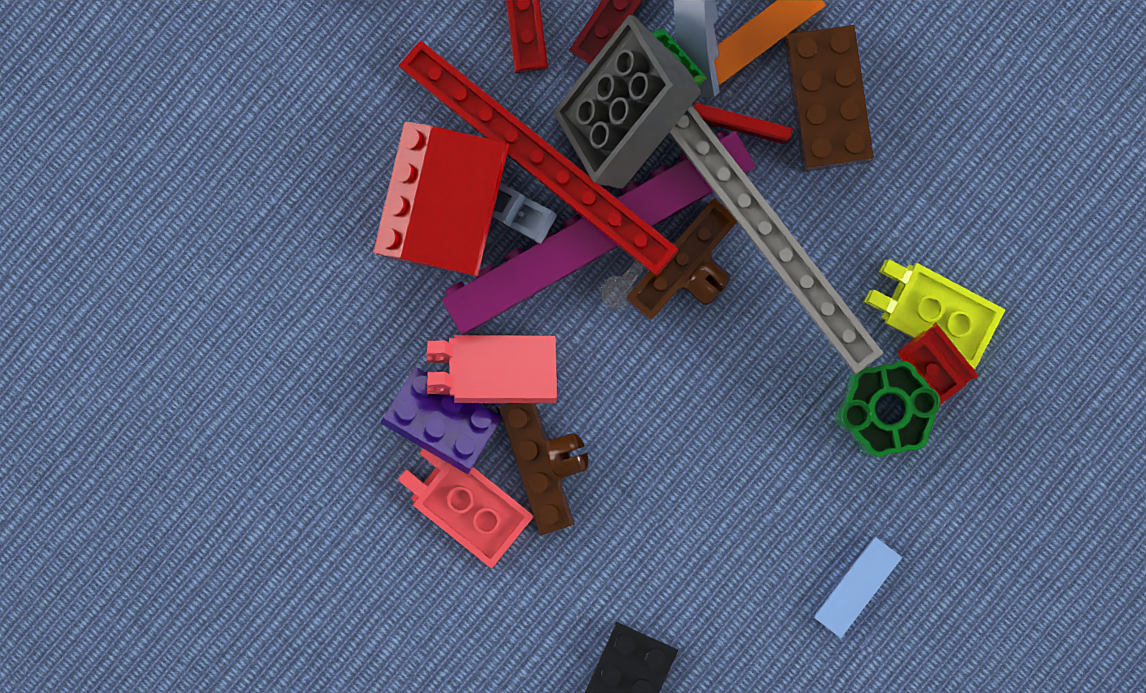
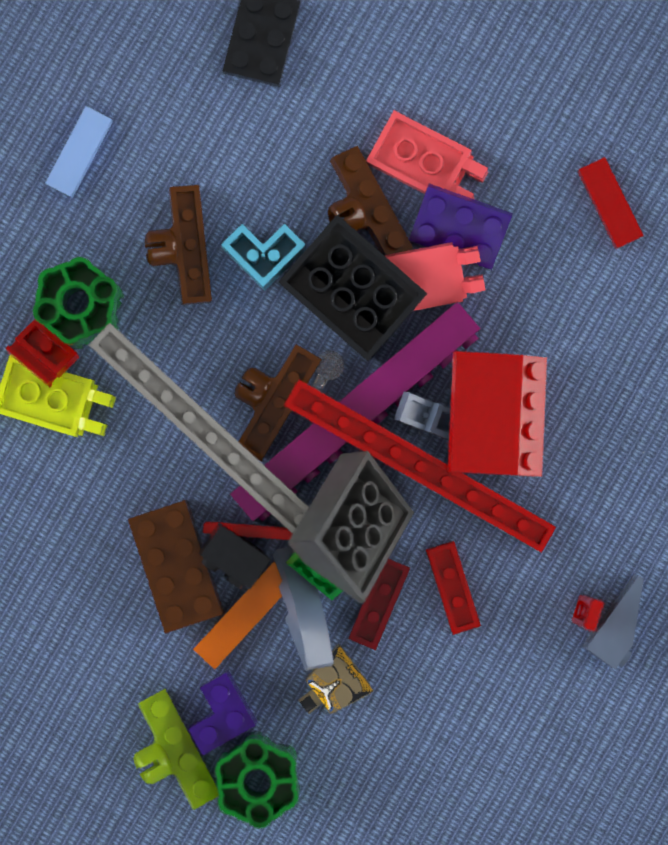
camera: 175 degrees right, 0 degrees up
(266, 417) = (610, 203): none -> red tile
(576, 368) = (352, 288): none -> black slope
(671, 420) = (267, 260): none -> medium azure brick
(756, 457) = (183, 245): none -> reddish brown plate
(761, 93) = (234, 556): none -> black brick

